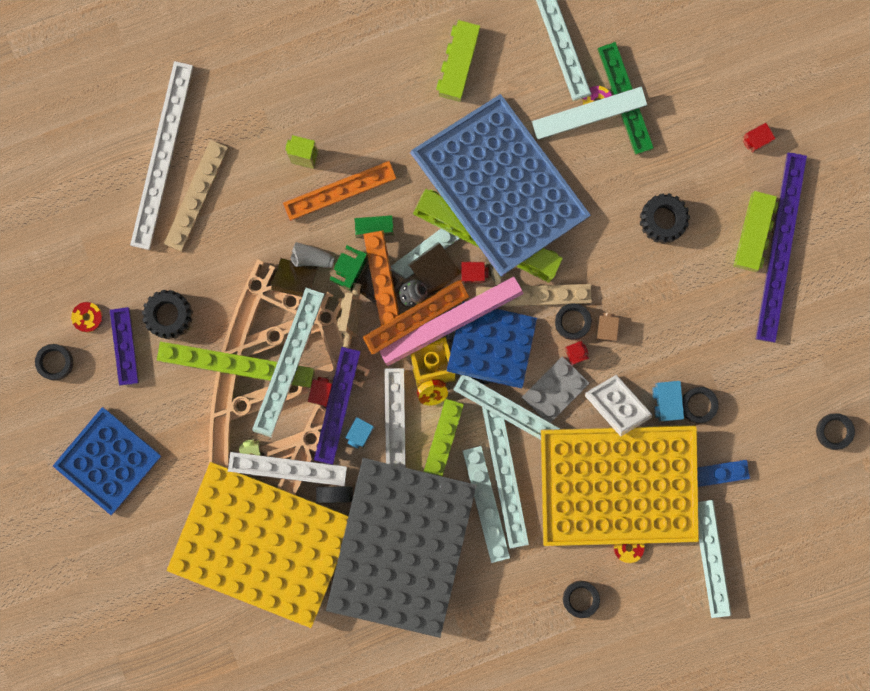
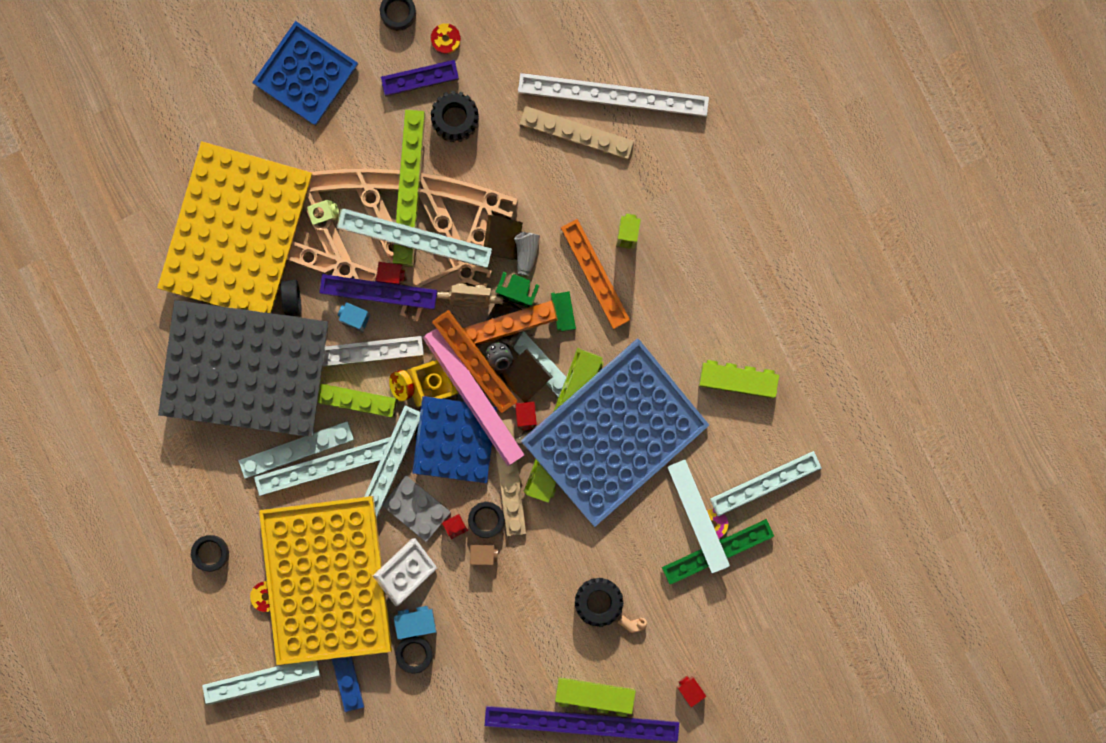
camera: 80 degrees right, 0 degrees up
(287, 469) = (311, 248): white plate -> none
(690, 188) = (633, 626): none -> light nougat arm

